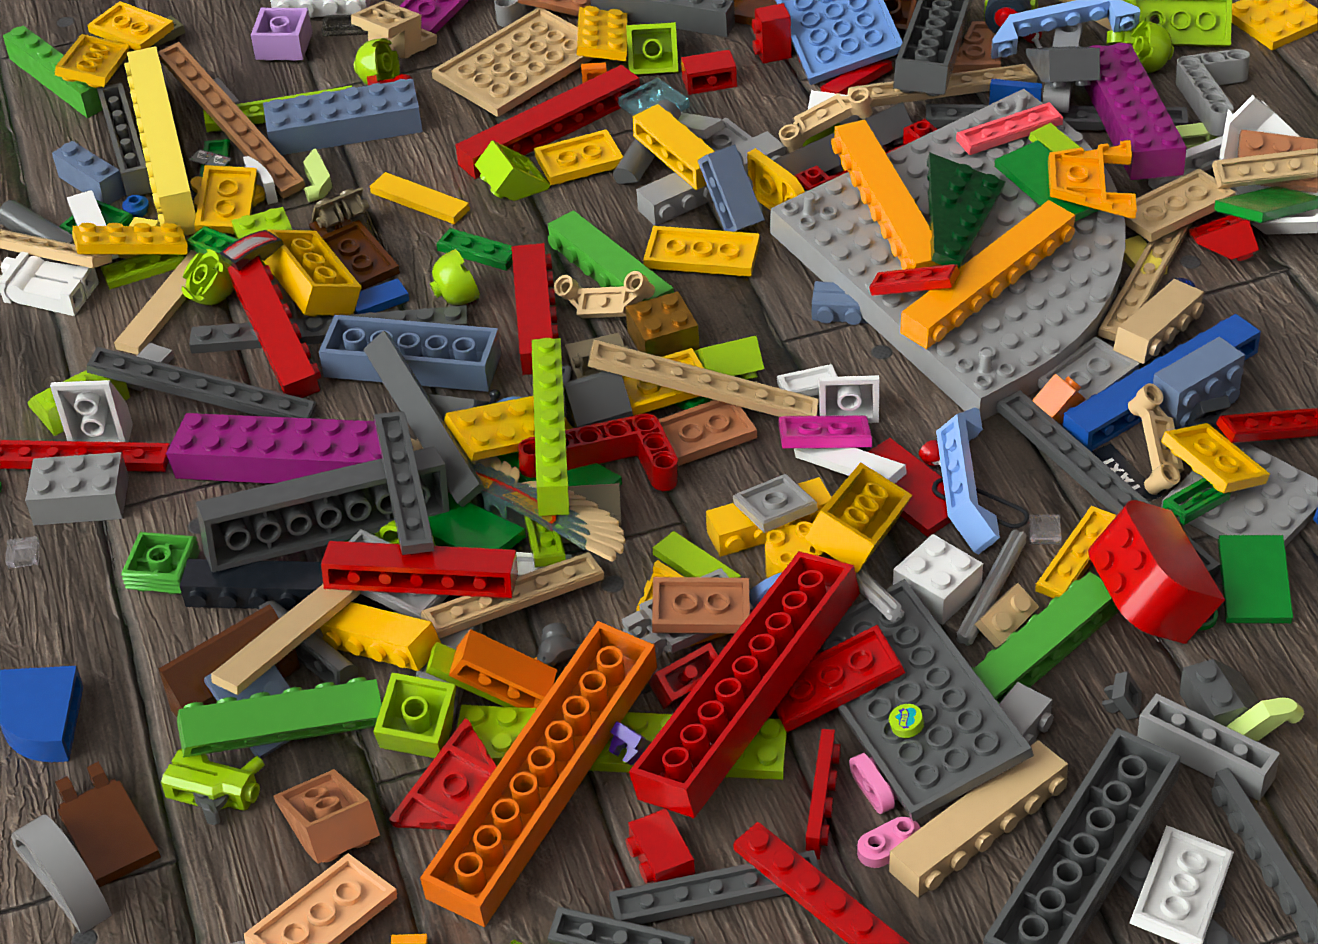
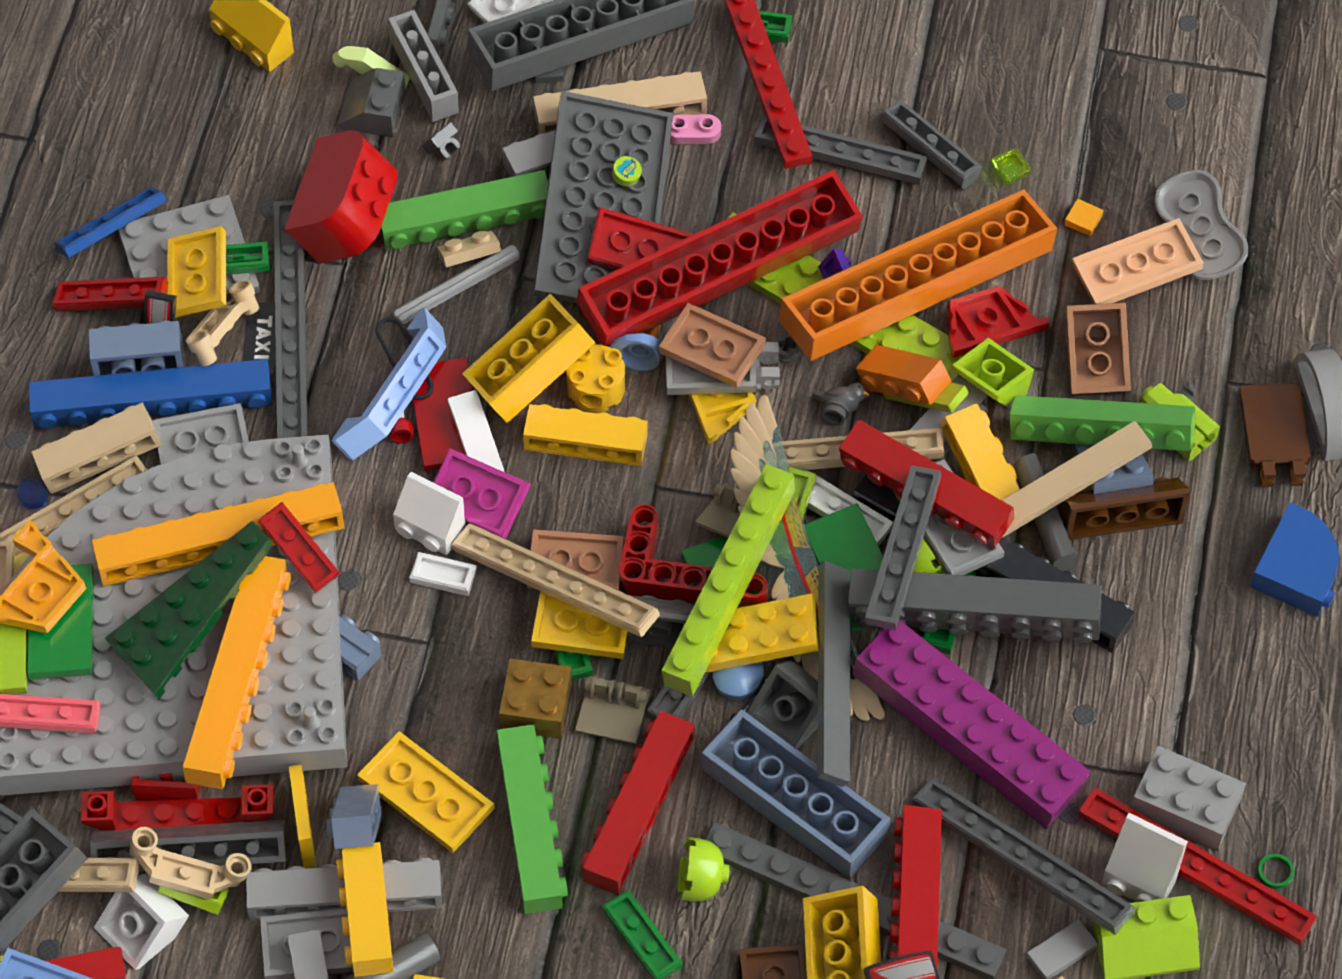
camera: 155 degrees left, 15 degrees up
(22, 552) = (1261, 761): clear tile -> none
(158, 562) = (1131, 649): bright green brick -> none
(381, 297) = (777, 917): blue tile -> none
(605, 300) = (569, 760): tan plate -> none
(659, 848) = (864, 185): red brick -> none
(680, 677) = (756, 310): red brick -> none
(688, 558) = (675, 431): lime tile -> none
(733, 358) = (499, 629): lime slope -> none
(775, 503) = (584, 414): light grey tile -> none
(824, 781) = (721, 175): red plate -> none
(872, 783) = (674, 175): bright pink plate -> none
(879, 596) = (572, 268): light grey axle -> none
(941, 577) = (496, 300): white brick -> none
(1044, 529) = (368, 315): clear tile -> none
(1058, 397) = (258, 410): brick -> none
(1073, 557) = (364, 281): yellow tile -> none
(1255, 579) = (258, 179): green tile -> none

